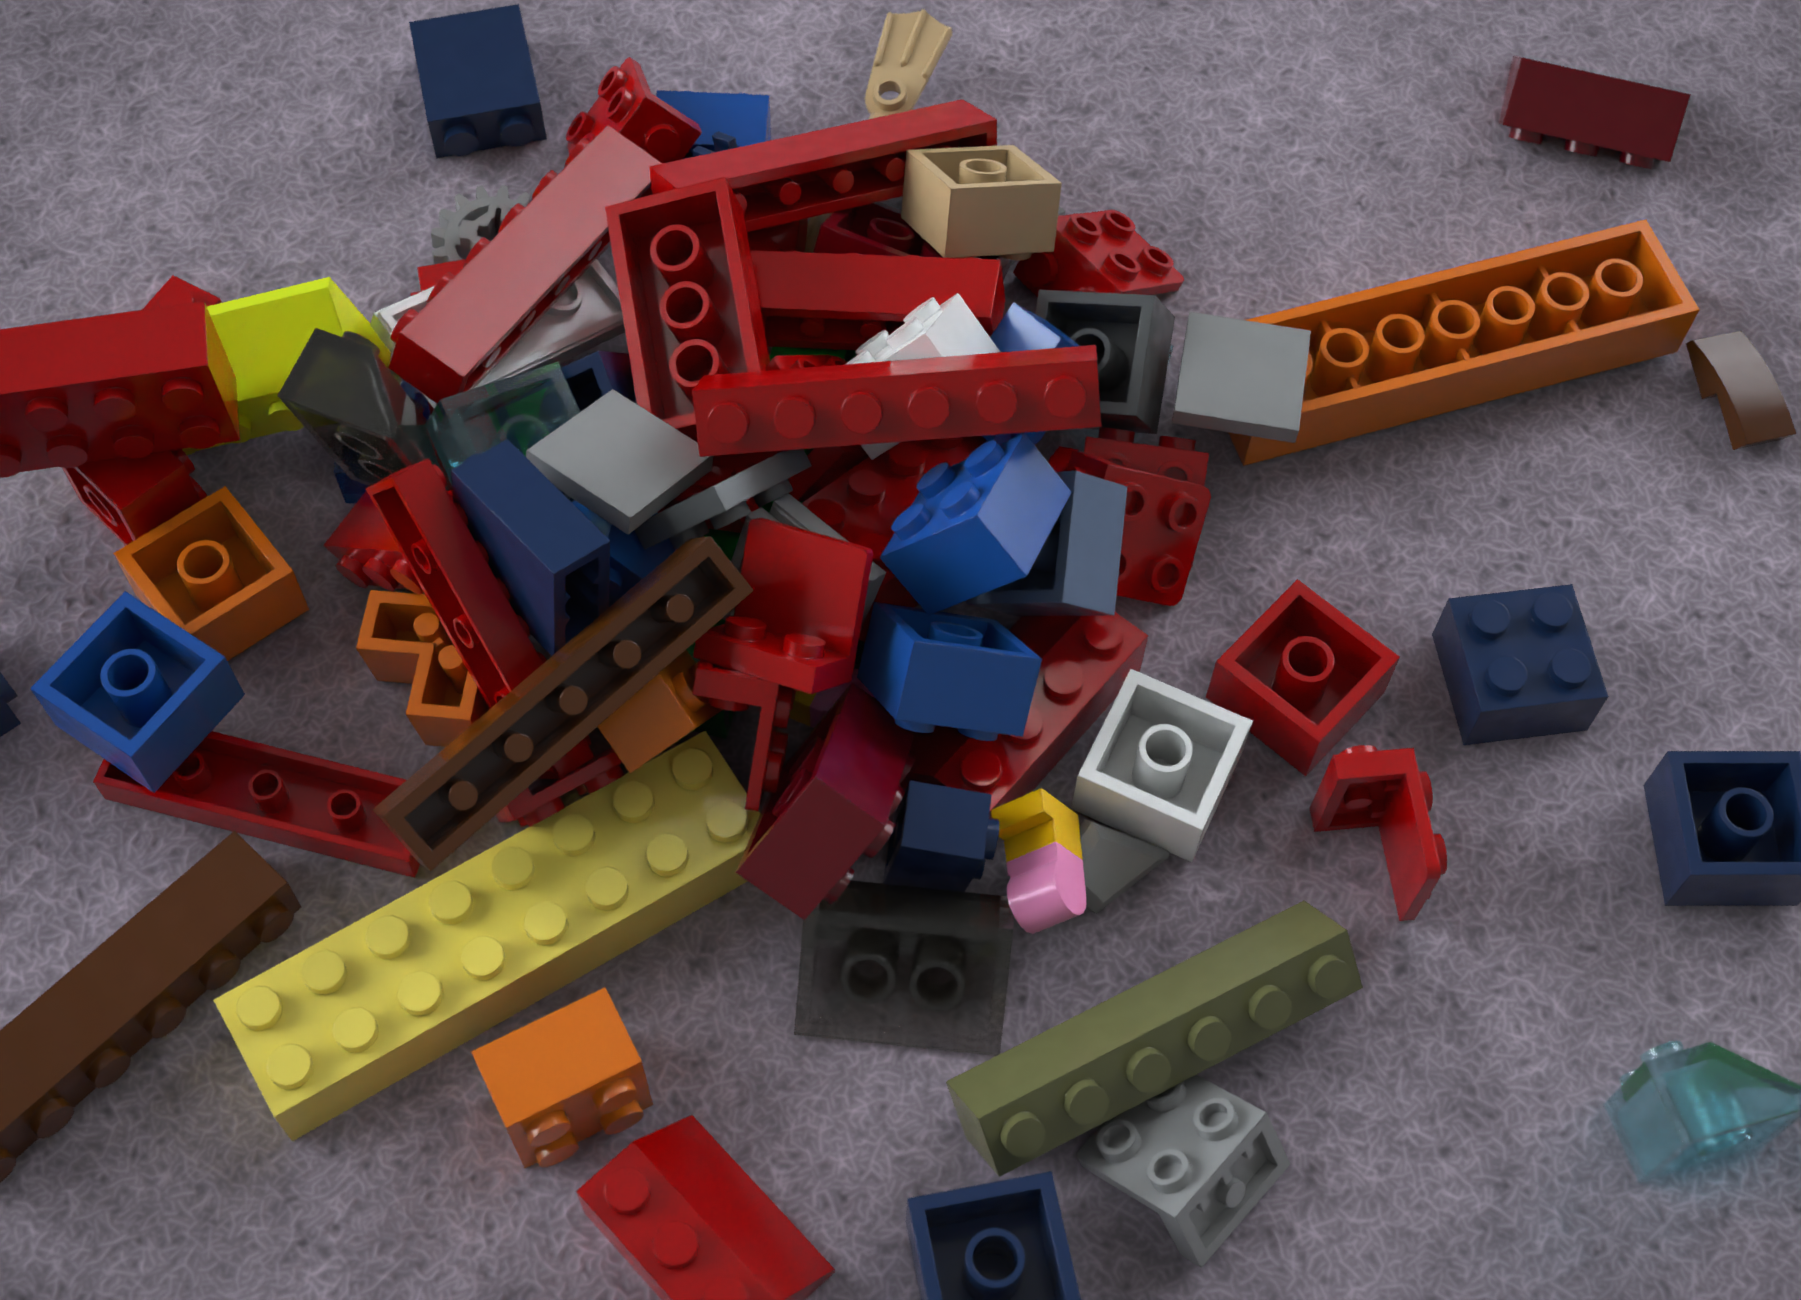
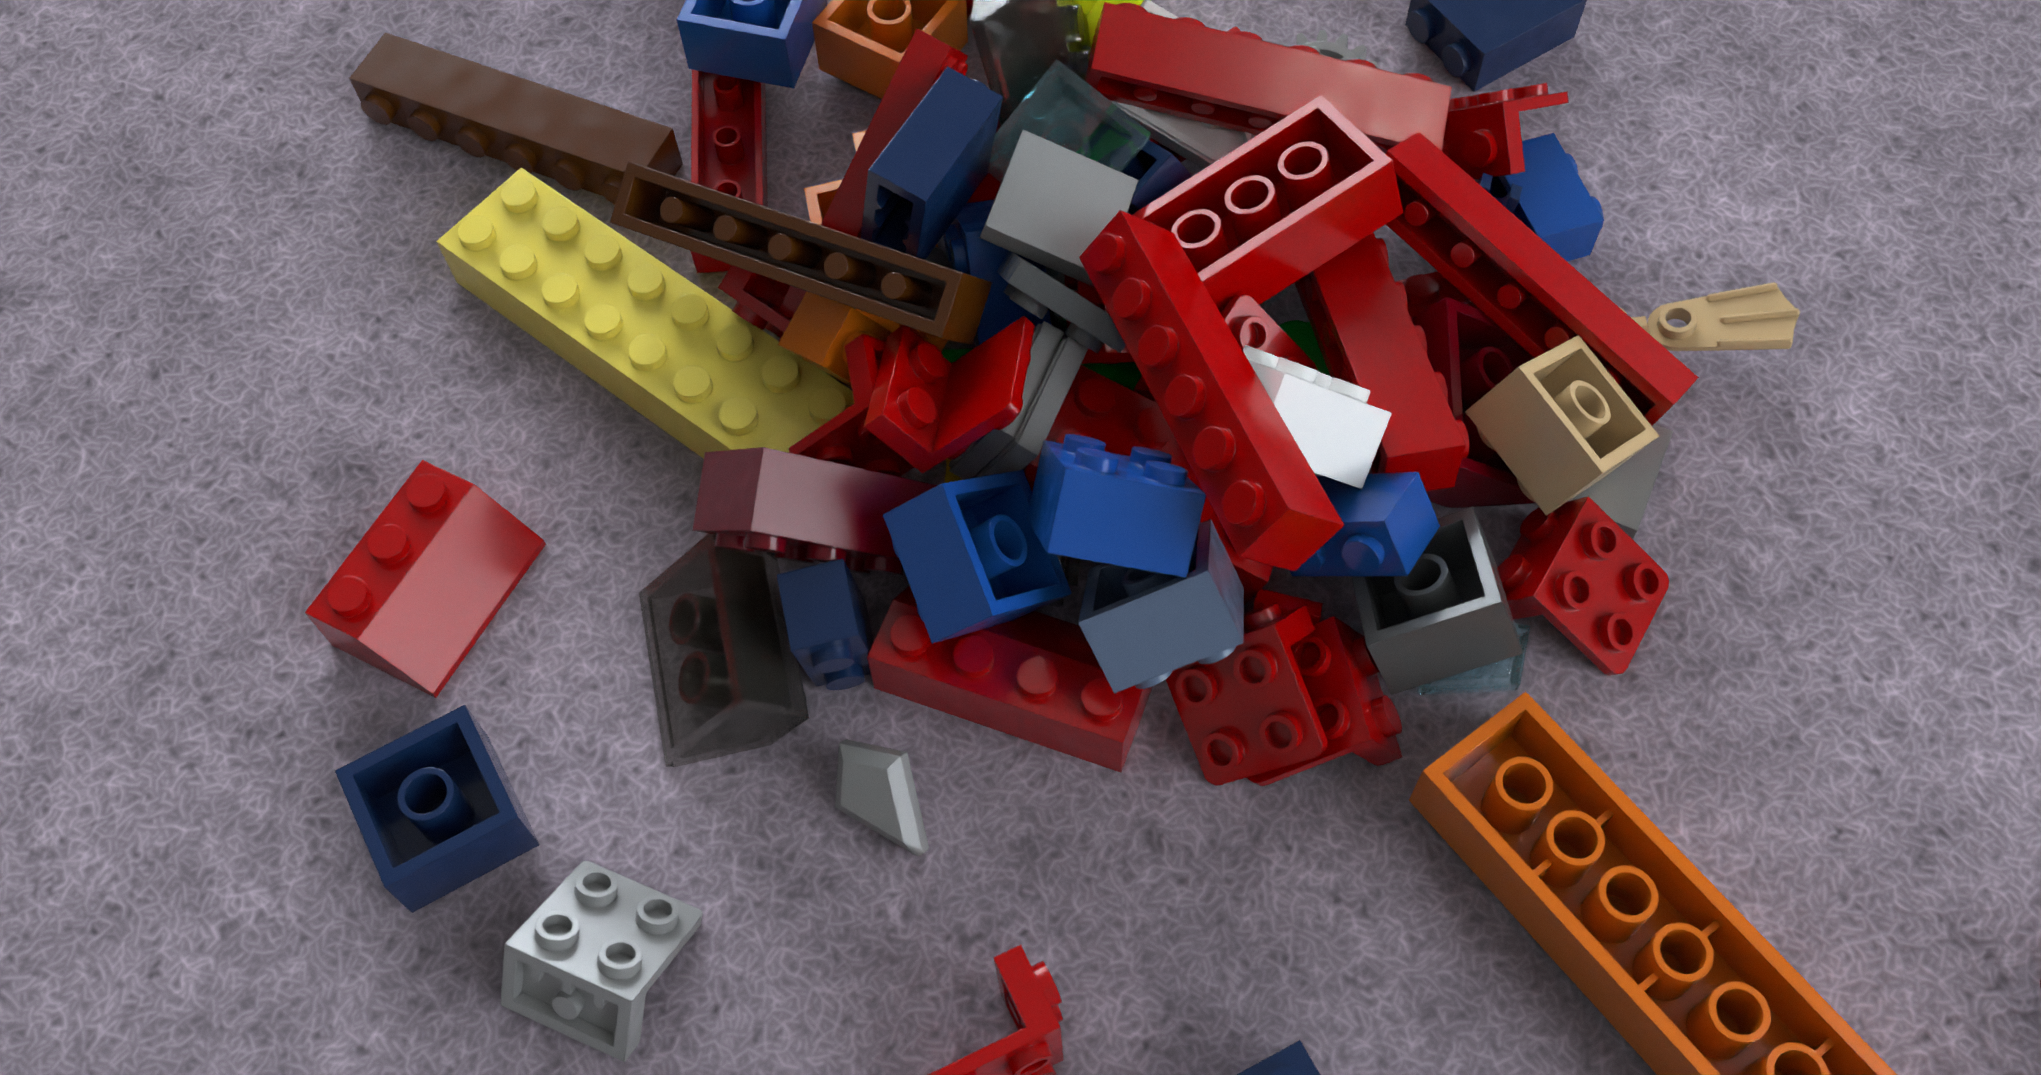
camera: 75 degrees right, 0 degrees up
(565, 1079) = (520, 421): orange brick -> none
(1042, 860) = (836, 723): leg -> none
(1153, 1036) = (708, 891): olive brick -> none
(1160, 764) = (992, 806): white brick -> none
(1242, 377) = (1471, 736): light grey tile -> none
(1302, 676) = (1149, 916): red brick -> none

